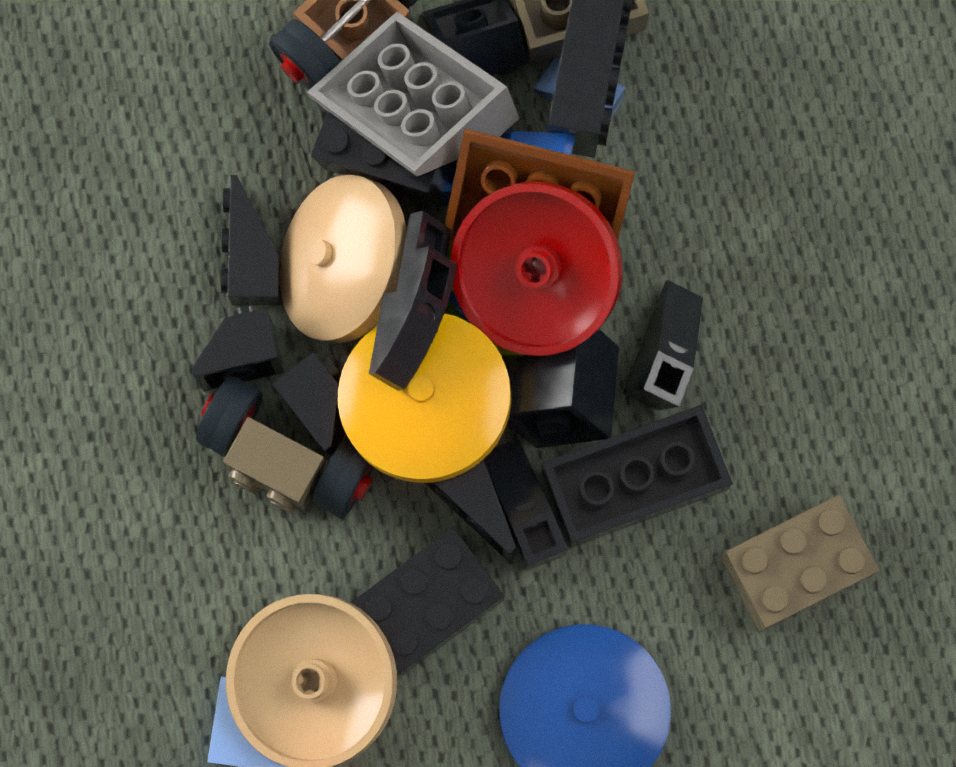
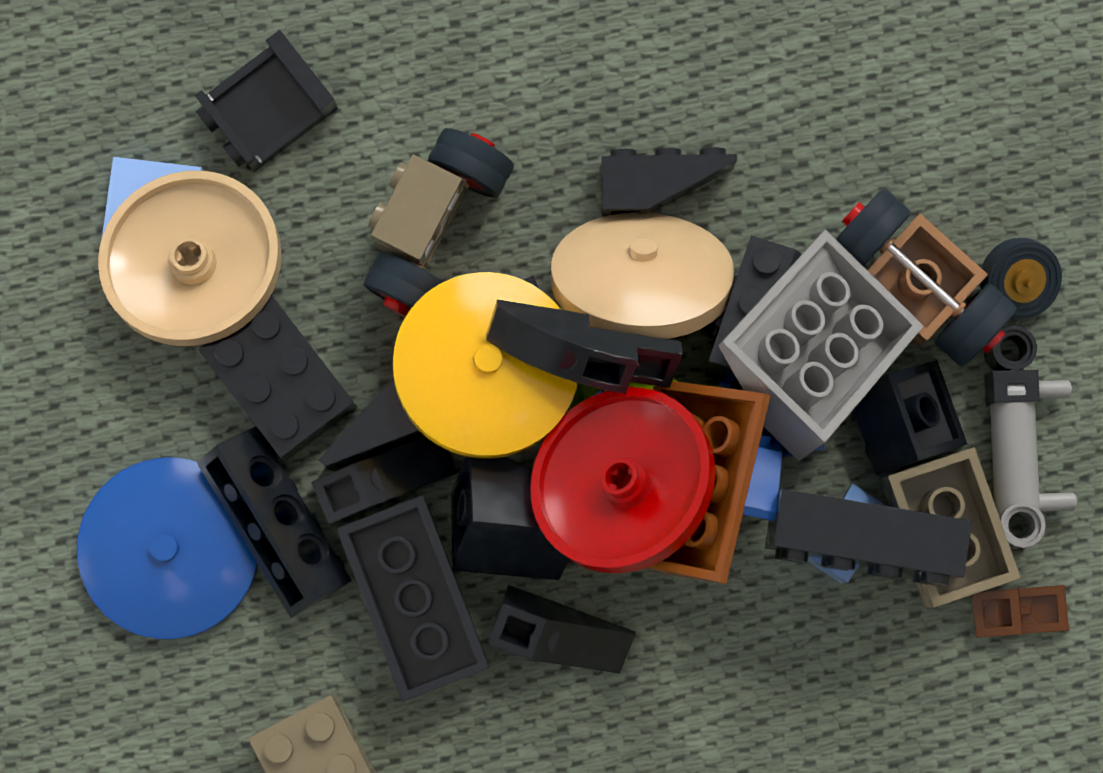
camera: 85 degrees right, 5 degrees up
(161, 613) = (266, 104): none -> black panel
(240, 348) = (544, 173): black slope -> none
(313, 396) = (486, 246): black slope -> none
(562, 606) = (274, 521): none -> black brick

